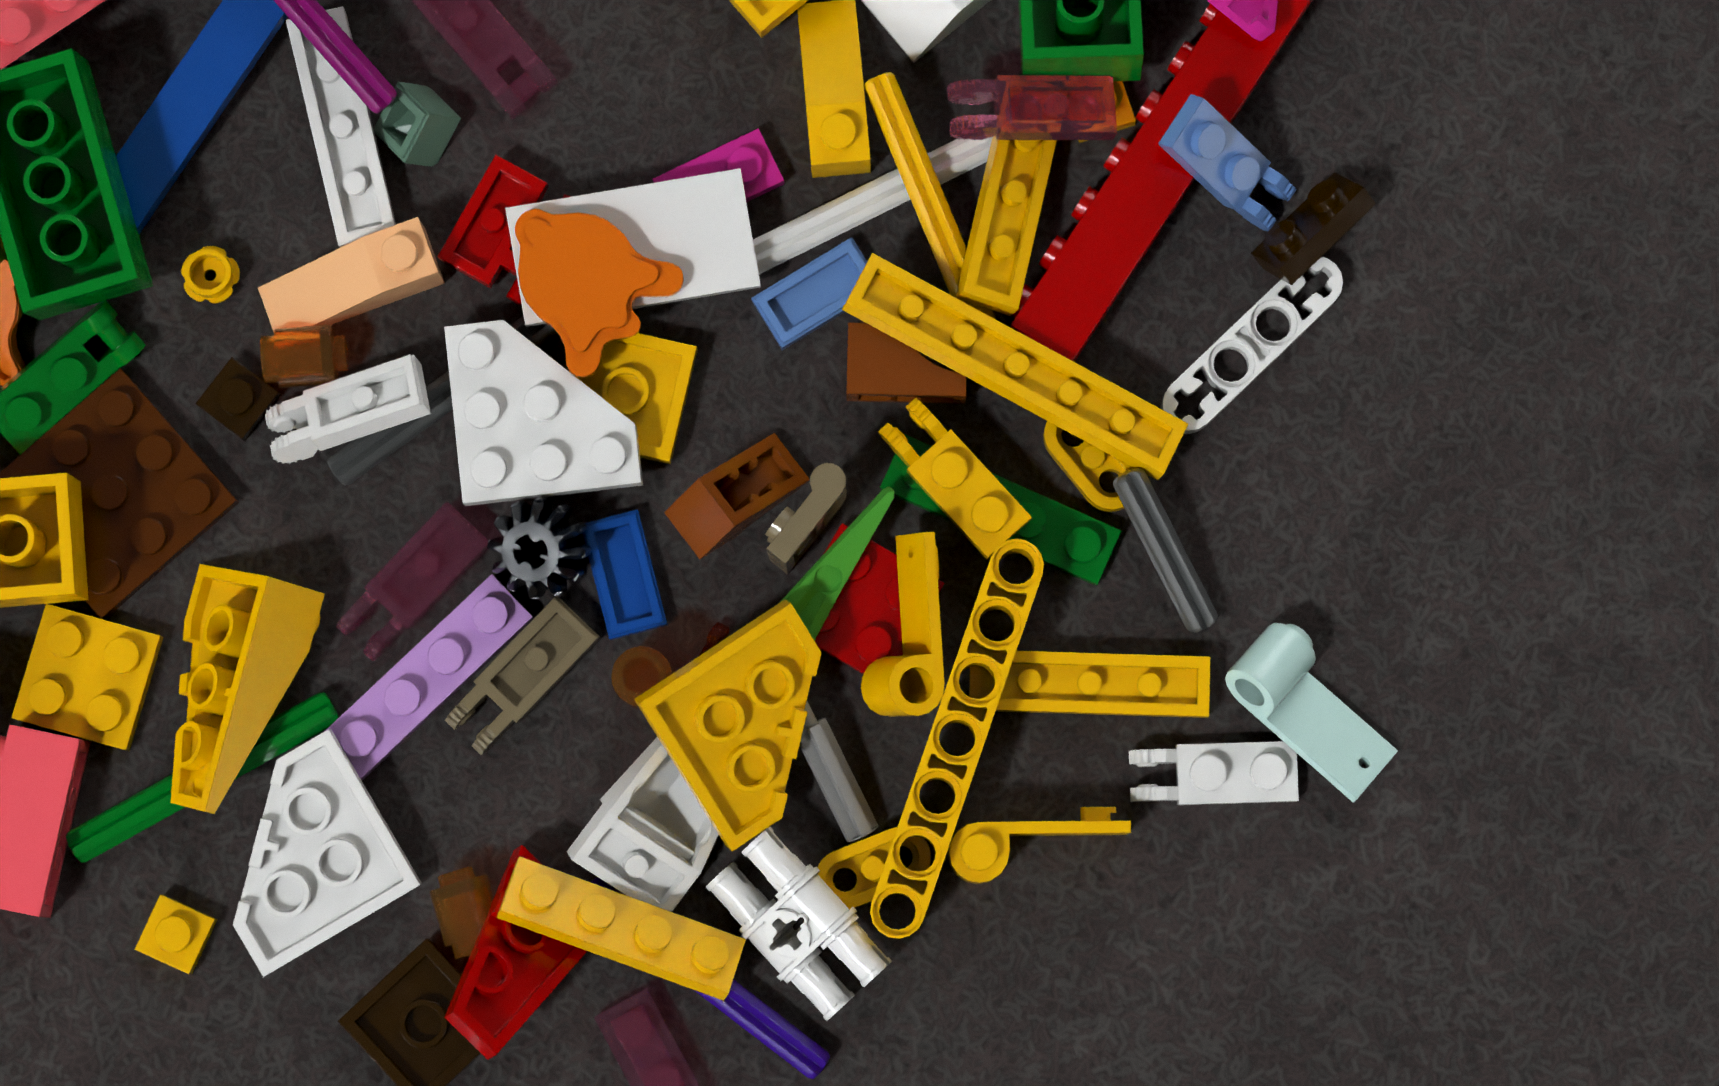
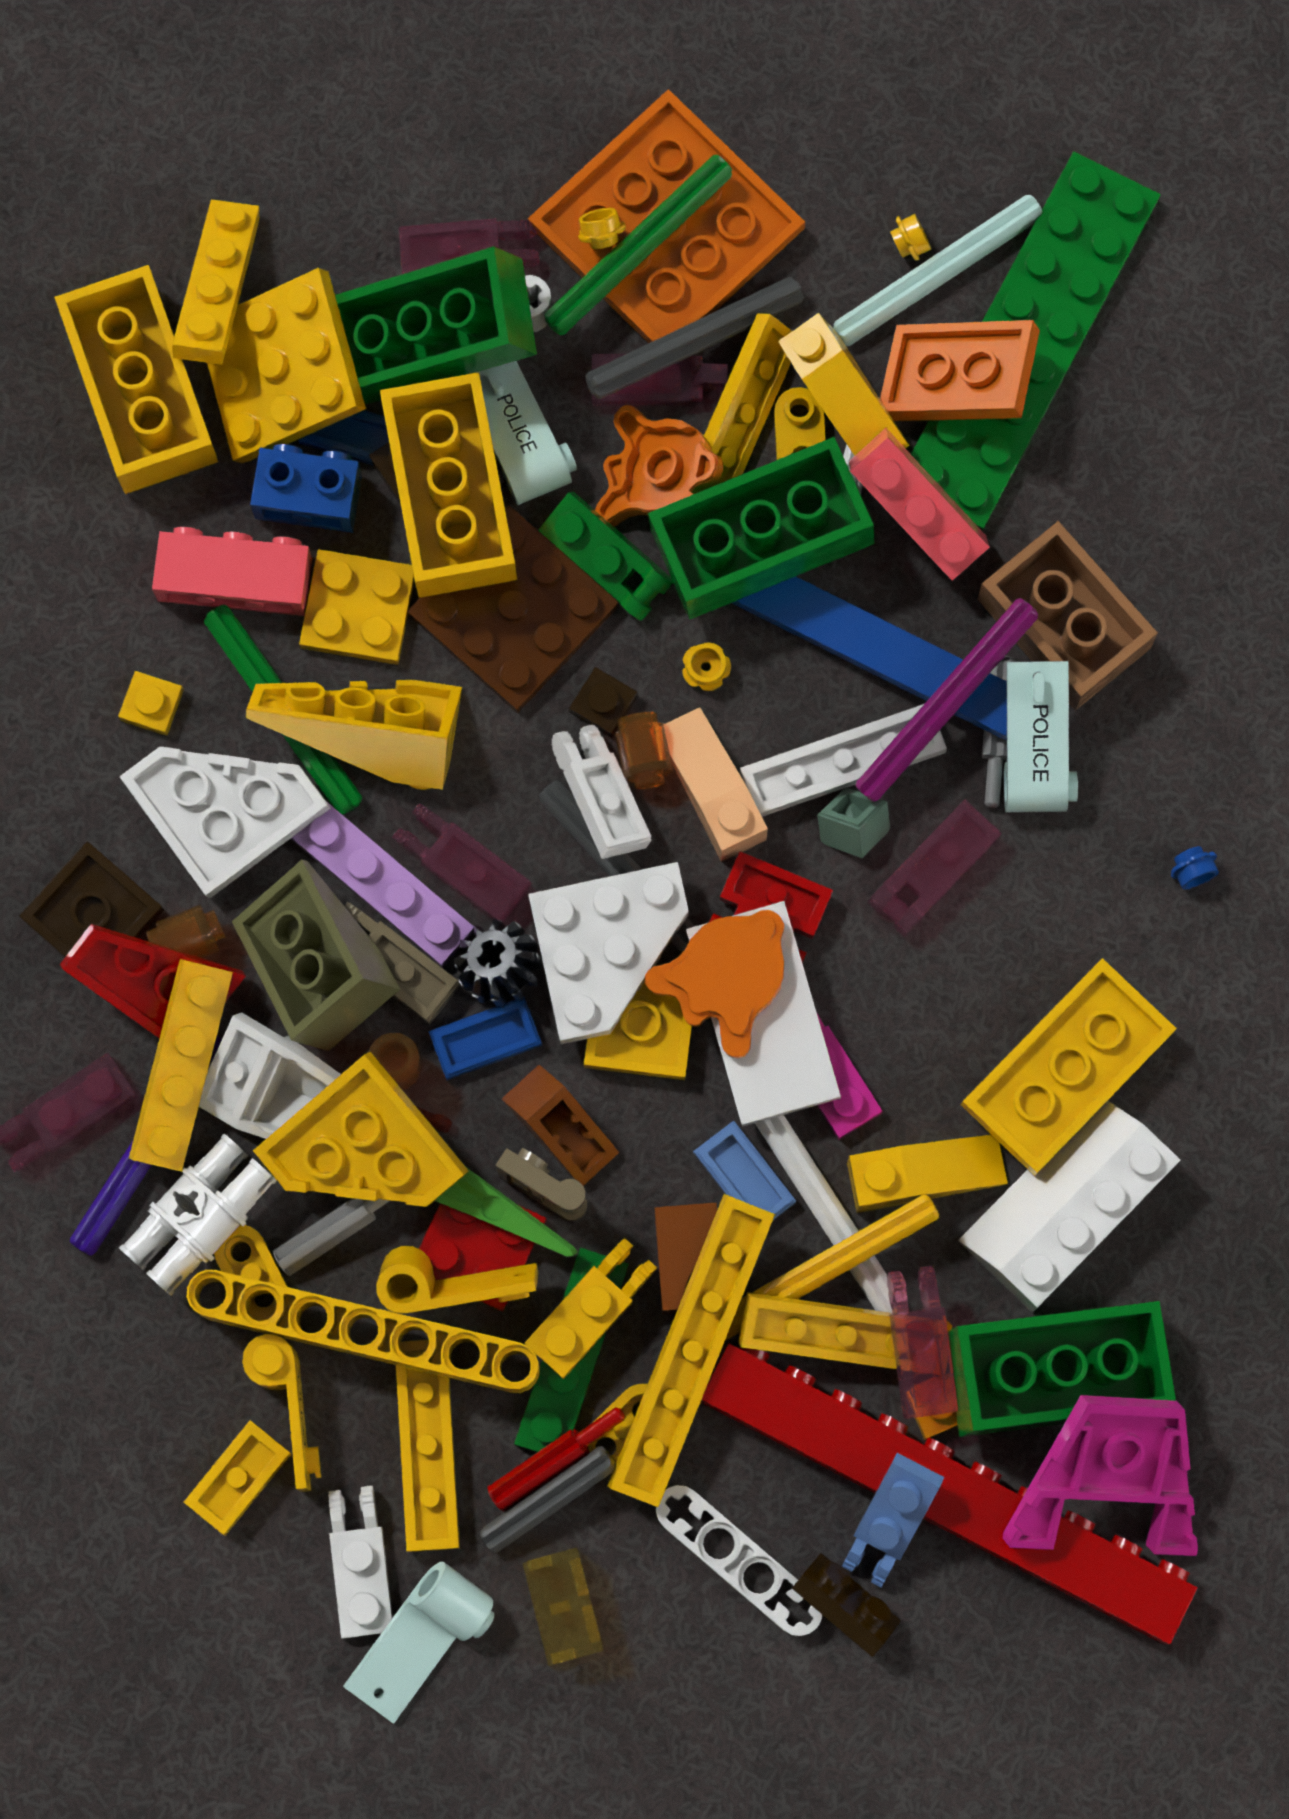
camera: 85 degrees right, 5 degrees down
(510, 762) = (314, 959): none -> olive slope
(1106, 904) = (237, 1478): none -> yellow plate
(1122, 542) = (550, 1461): none -> red axle
(1286, 545) = (563, 1606): none -> clear yellow hinge

